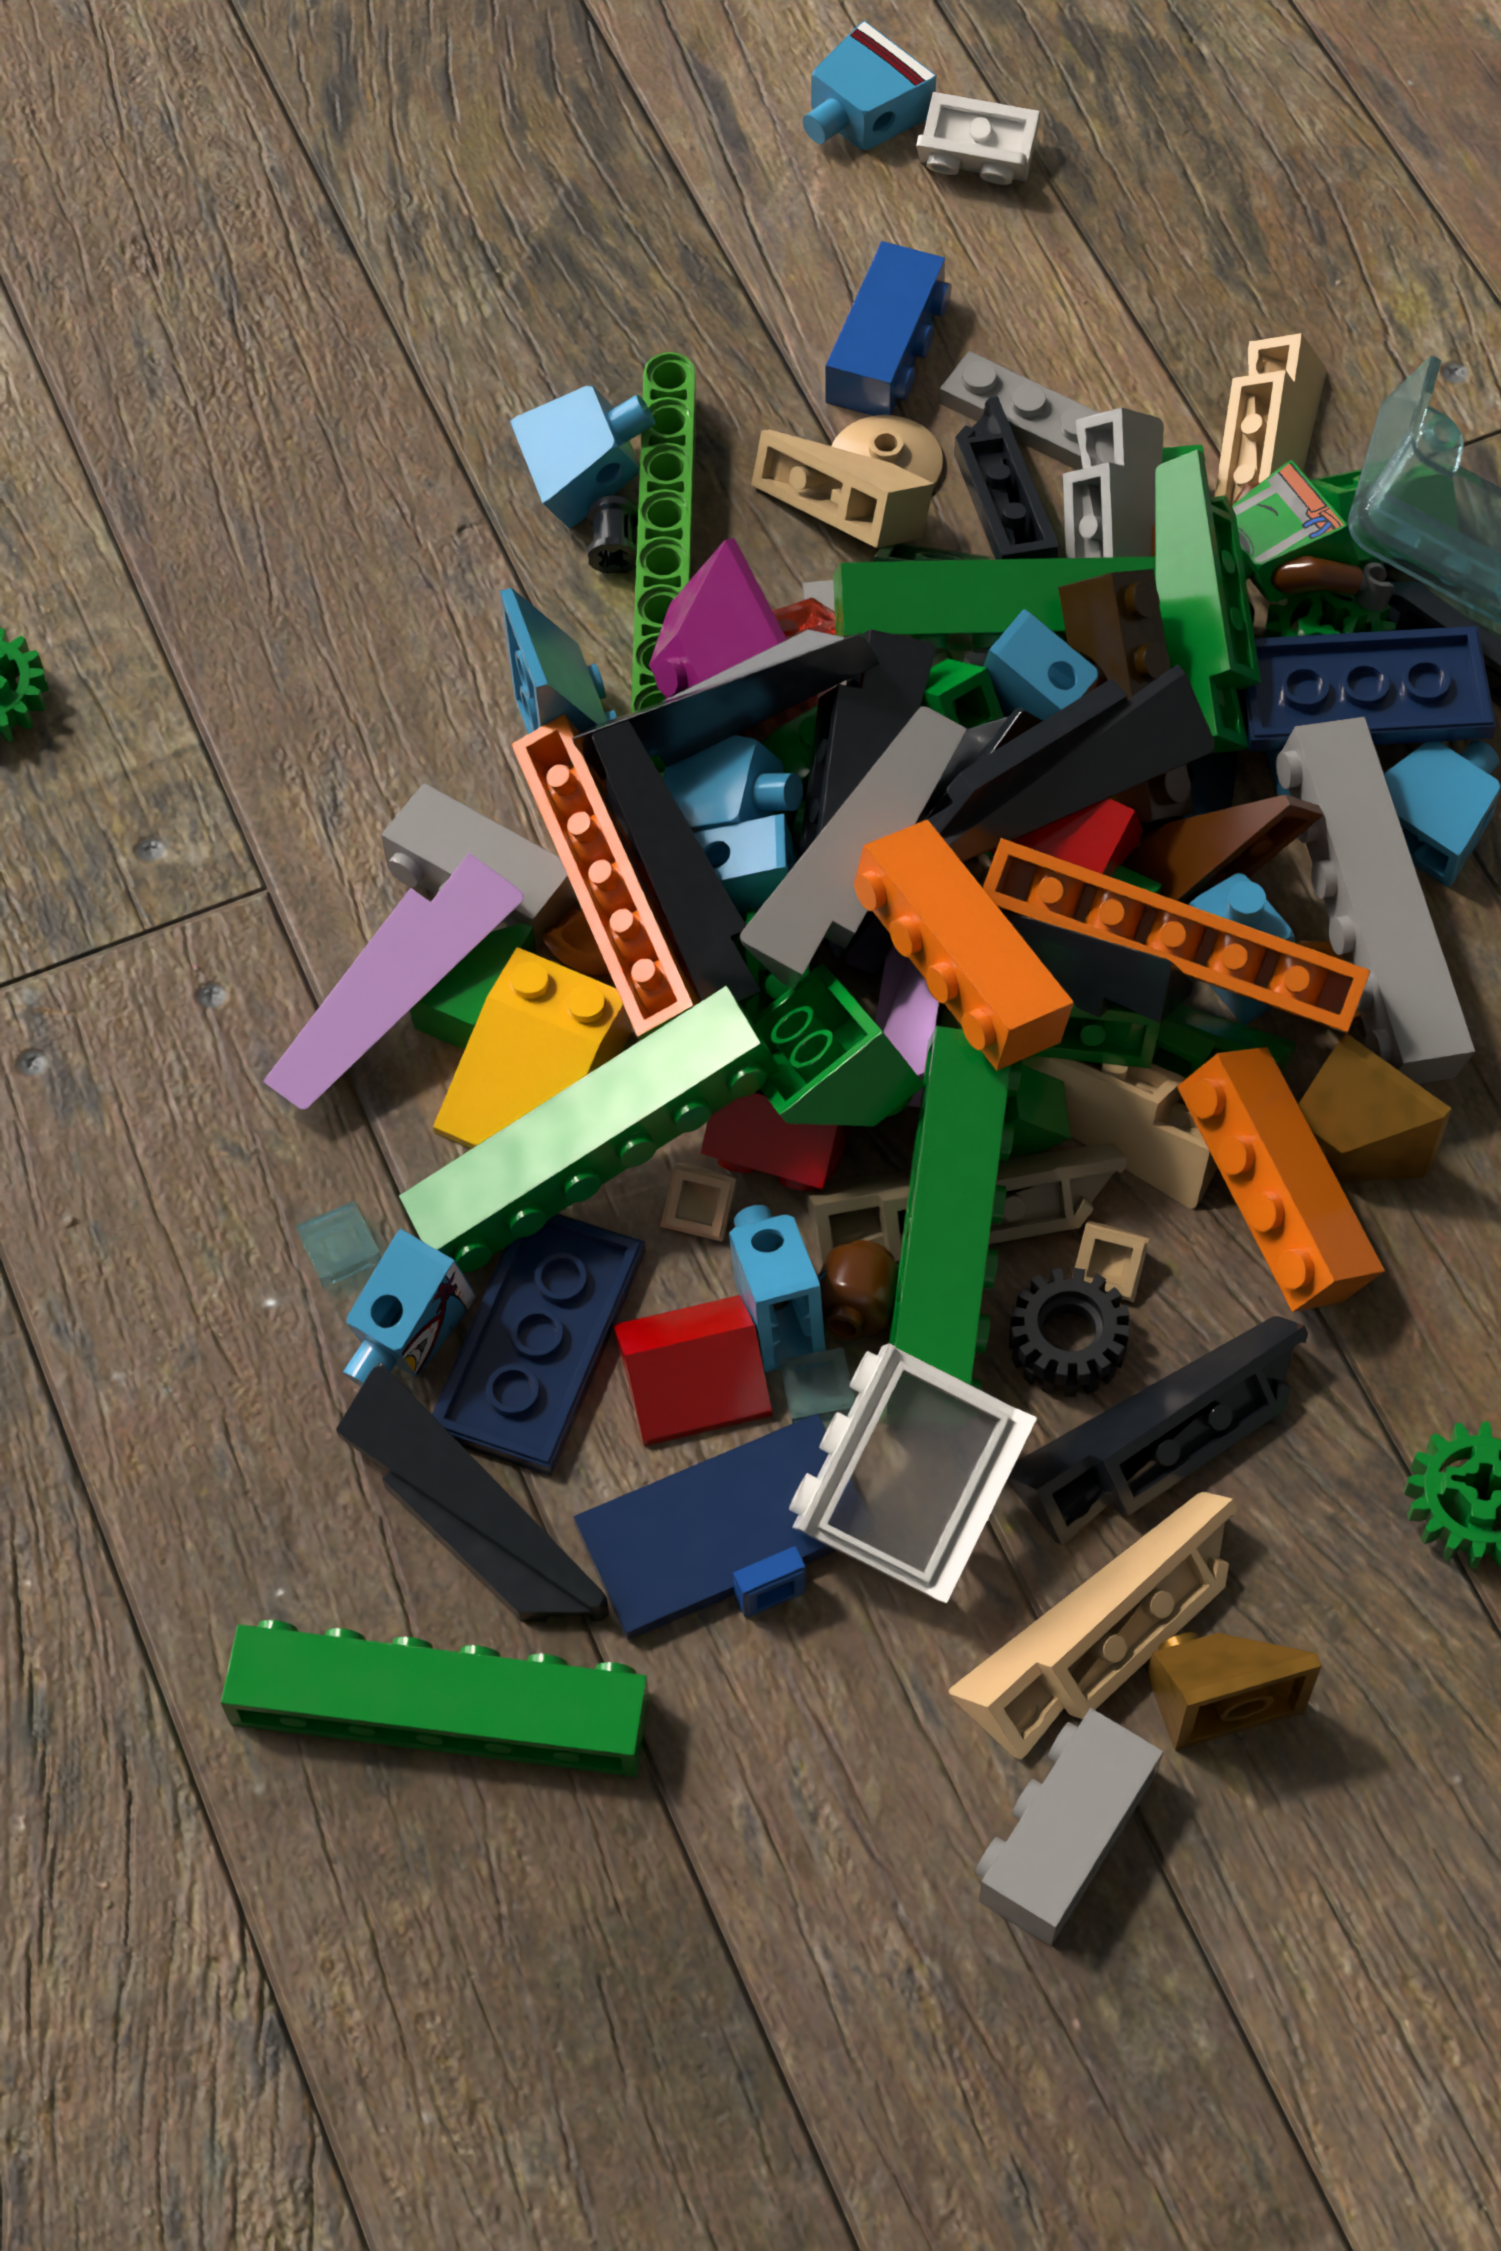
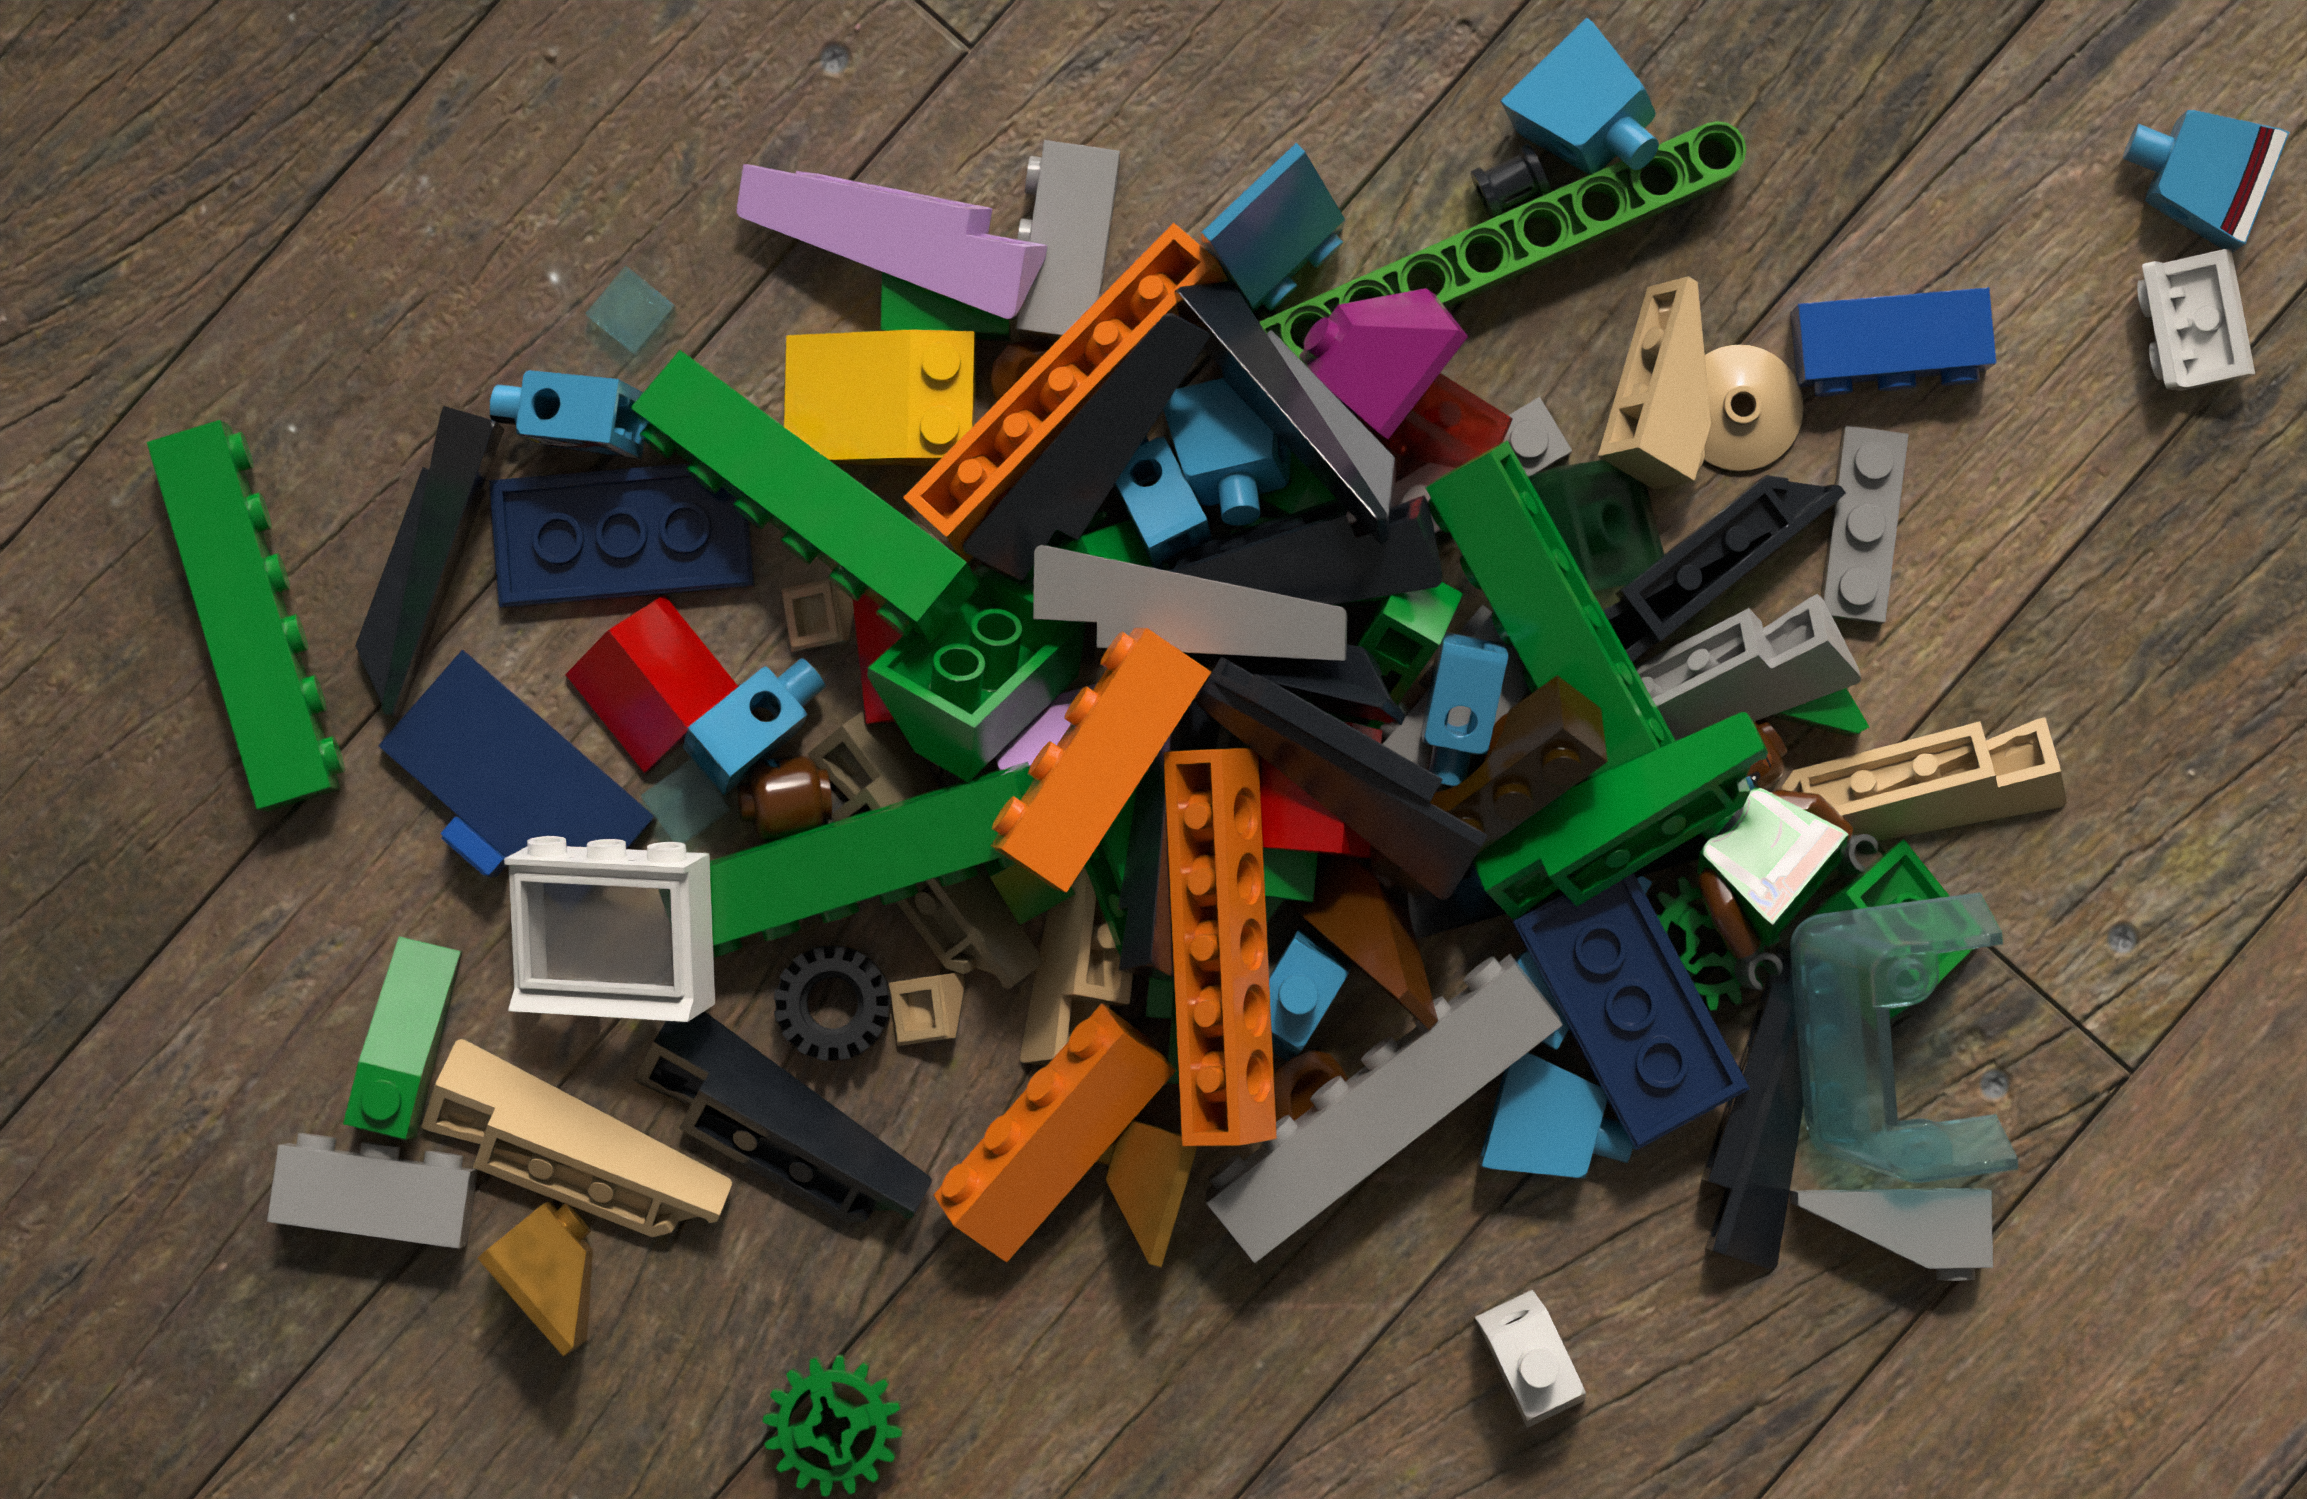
camera: 60 degrees right, 25 degrees up
(931, 1734) = (403, 1040): none -> slope

